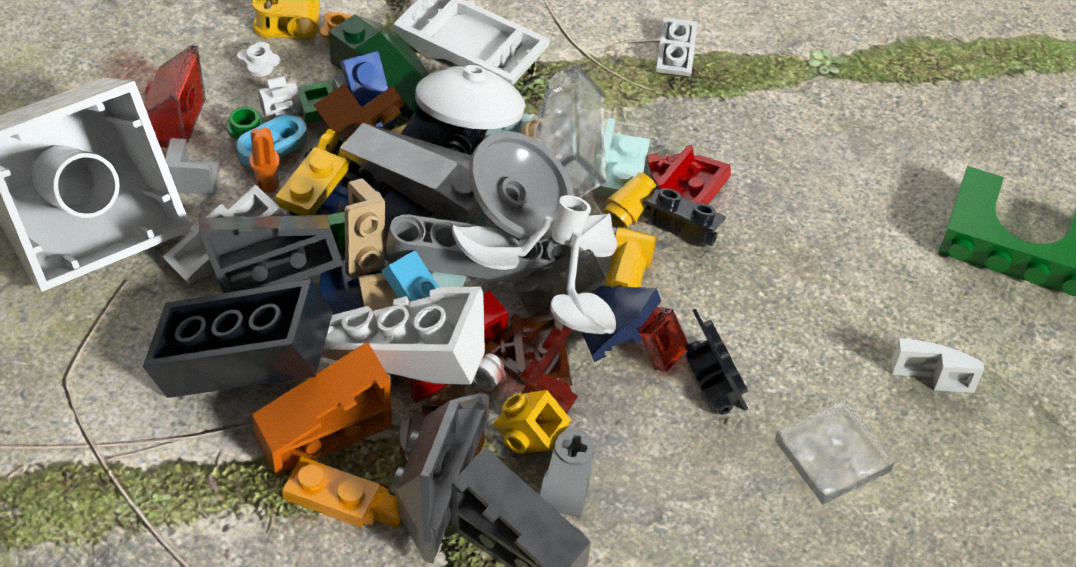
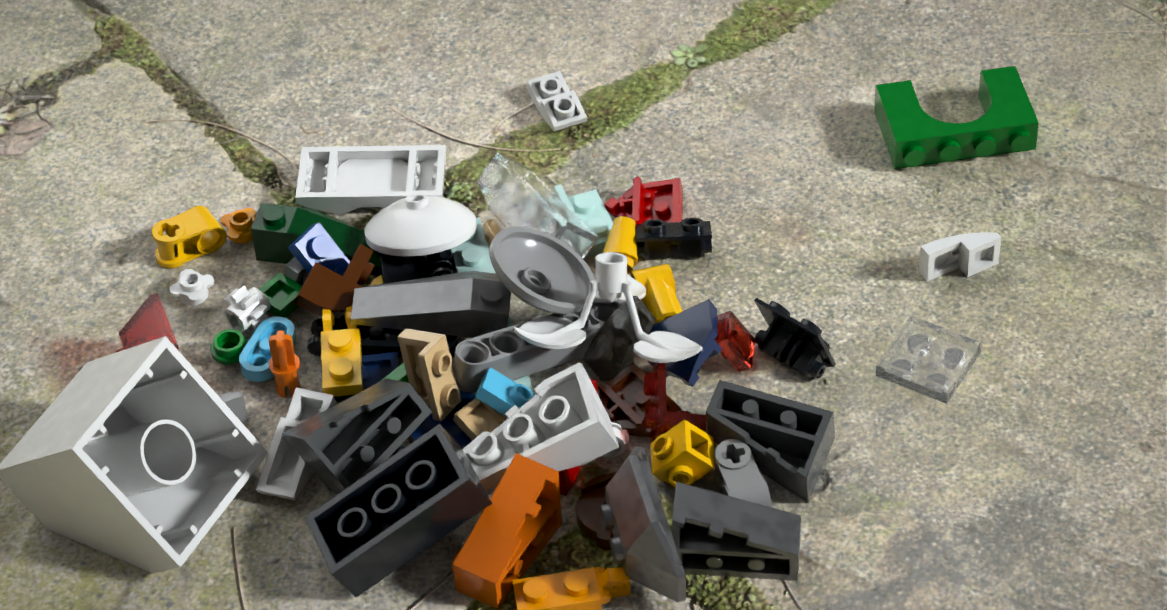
camera: 25 degrees left, 5 degrees down
(630, 448) = (783, 434): none -> dark grey wedge

